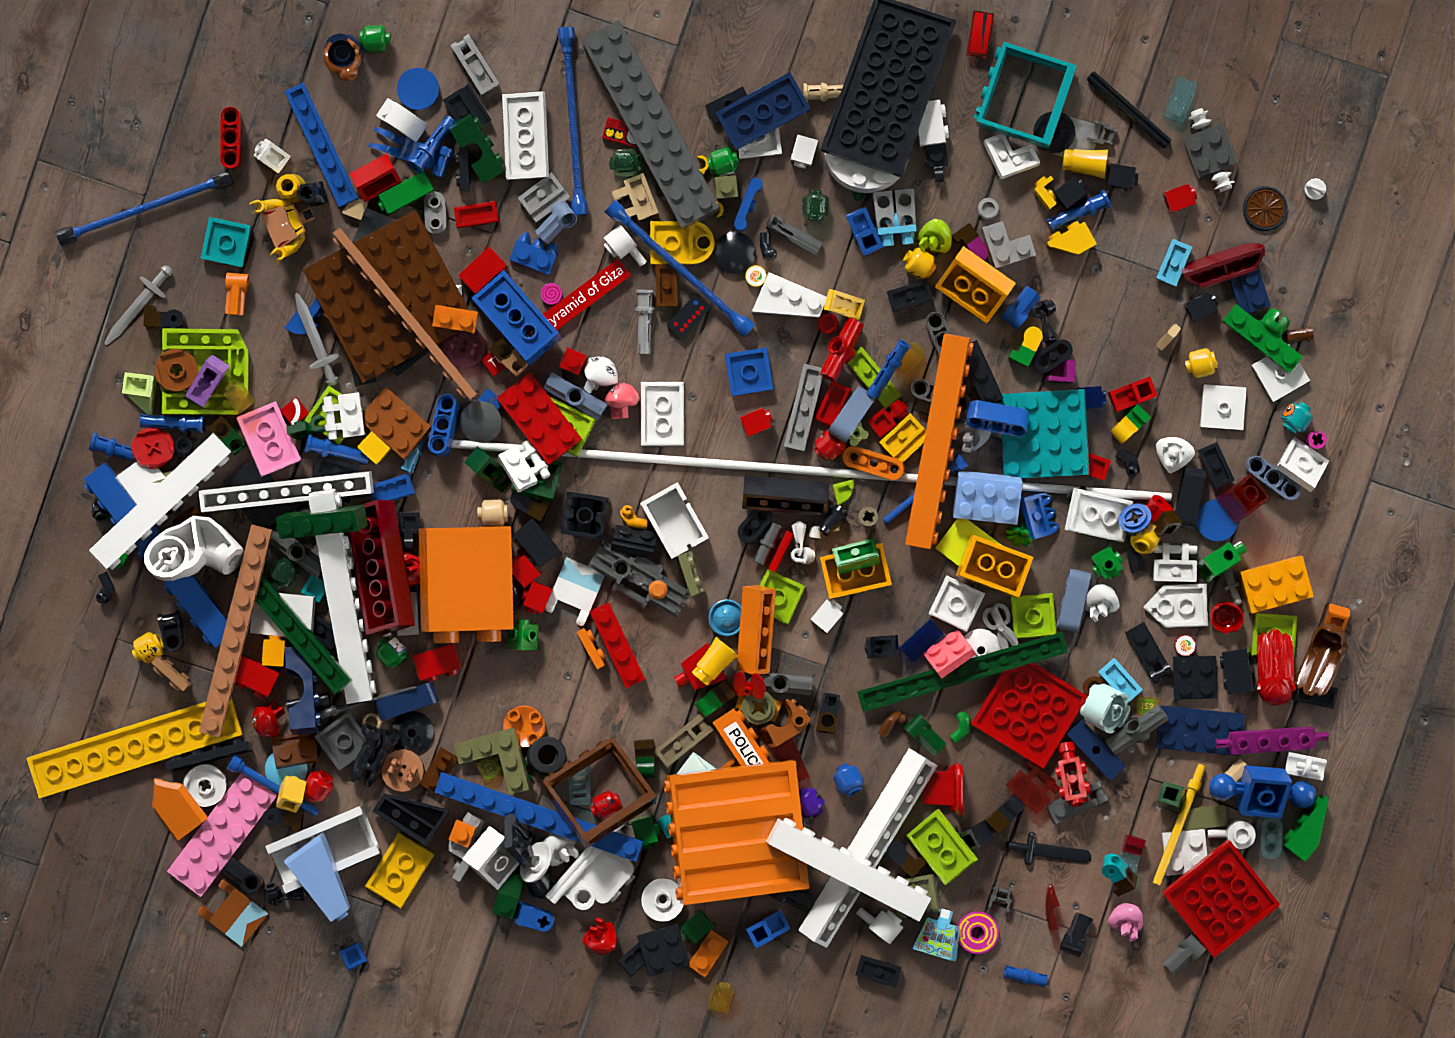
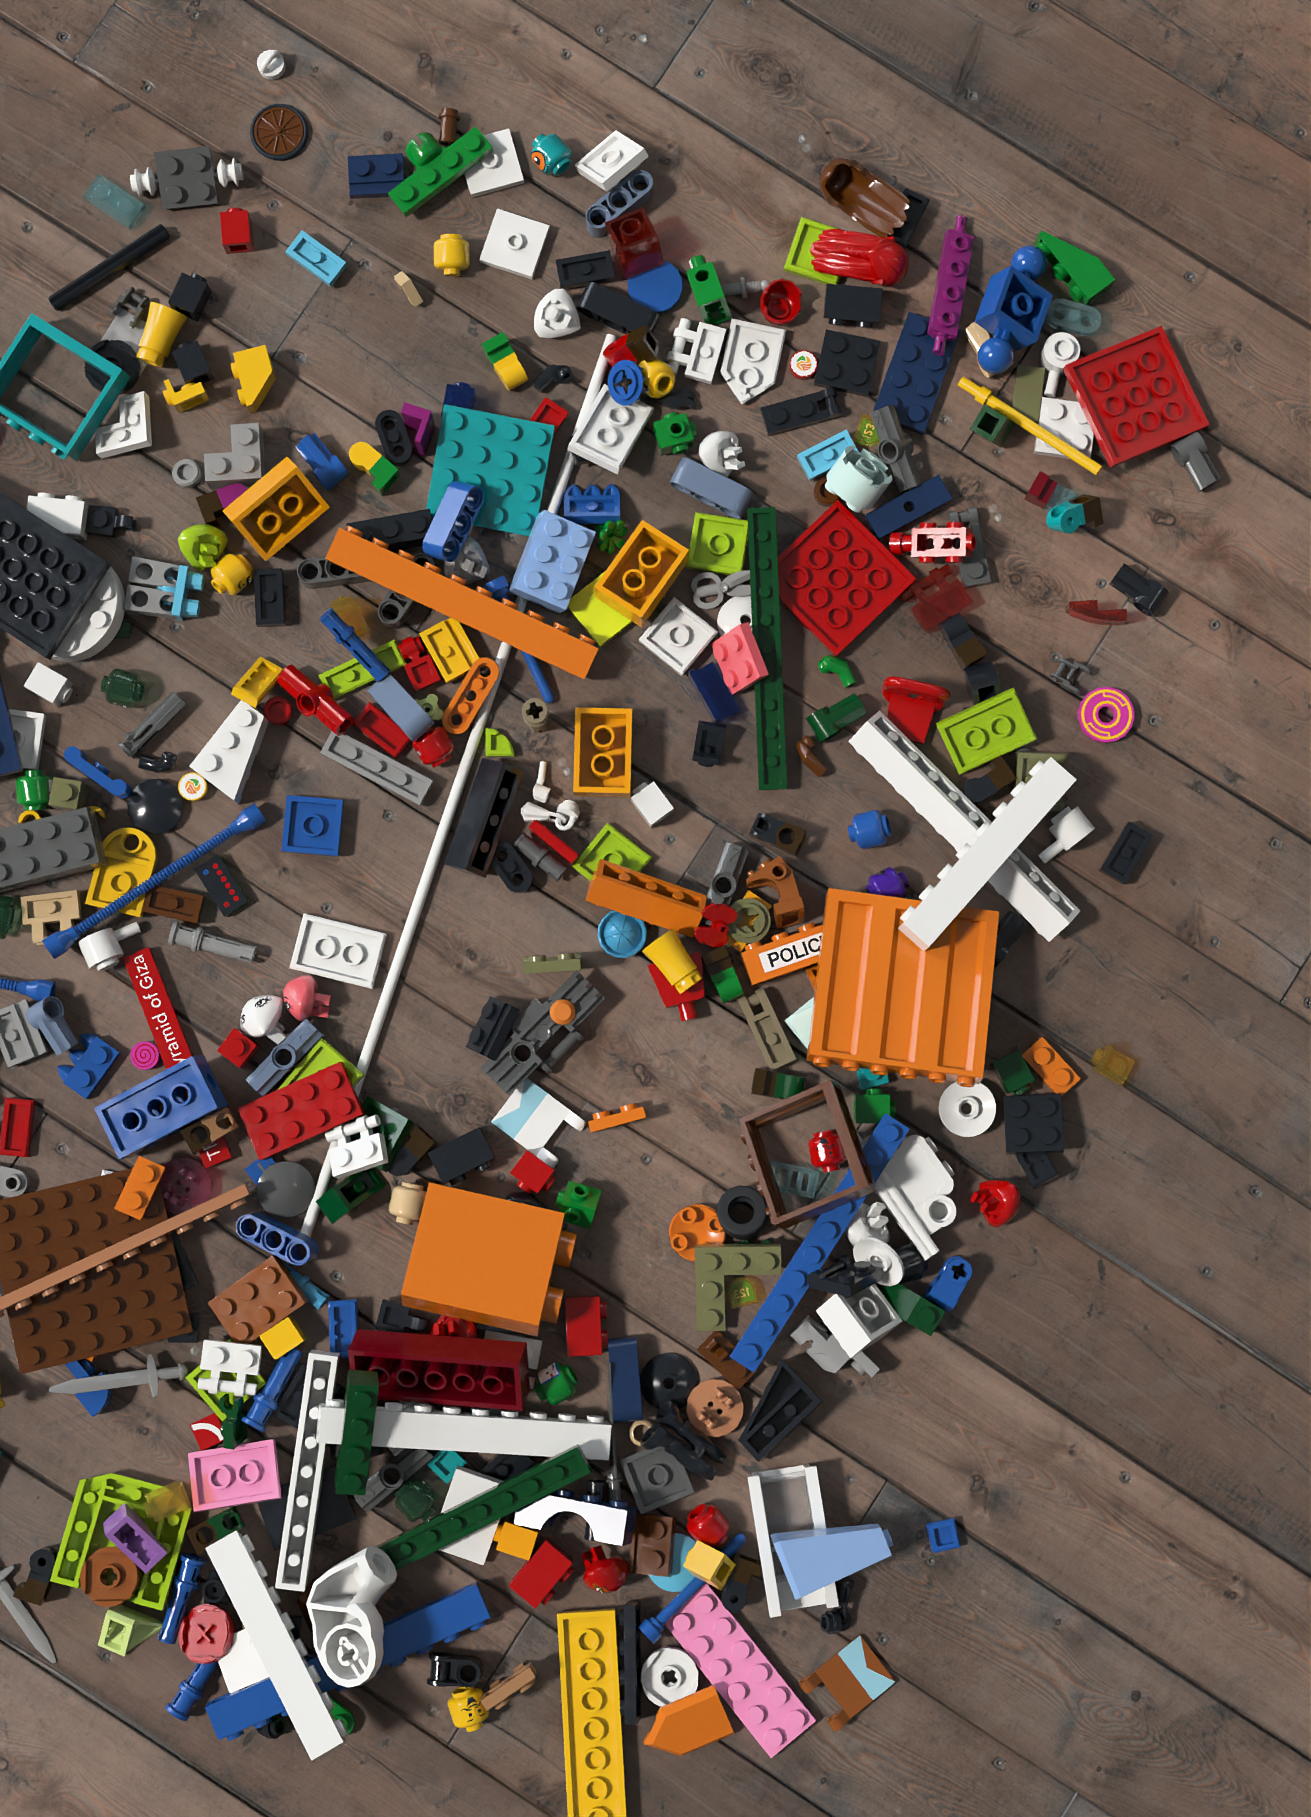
camera: 75 degrees left, 5 degrees down
(107, 588) = (376, 1742): black arm -> none
(236, 287) = (26, 1467): orange piece -> none
(236, 630) = (474, 1584): nougat plate -> none
(240, 874) = (799, 1658): black piece -> none
(399, 870) = (845, 1444): yellow tile -> none
(462, 833) = (817, 1348): orange plate -> none
(482, 270) = (88, 1136): red brick -> none
(524, 570) = (493, 1180): red brick -> none
(585, 515) = (441, 1082): black piece -> none
(617, 645) = (621, 1083): red brick -> none
(631, 519) = (464, 1025): light orange arm -> none
(673, 520) = (479, 970): white piece -> none
(756, 421) = (378, 831): red brick -> none
(767, 929) = (1037, 982): blue brick -> none
(789, 751) = (814, 896): clear red plate -> none
(835, 517) = (529, 762): black cone -> none
(856, 556) = (583, 744): green slope -> none
(864, 231) = (175, 634): blue brick -> none
(939, 937) = (1100, 763): torso -> none
(1025, 976) = (1176, 667): blue pin -> none
(1044, 850) = (1022, 601): black sword -> none
(1047, 309) = (333, 431): black piece -> none
(1088, 206) = (217, 347): blue pin -> none
(1126, 919) = (1134, 520): bright pink piece -> none
(1132, 394) = (468, 348): red brick -> none
(1201, 306) = (380, 238): black brick -> none
(1224, 265) = (335, 195): dark red brick -> none
(1275, 584) = (754, 232): light orange brick -> none
(1305, 766) = (993, 250): white hips -> none
(1316, 440) = (585, 138): dark pink piece -> none
(1337, 615) = (812, 168): orange slope -> none

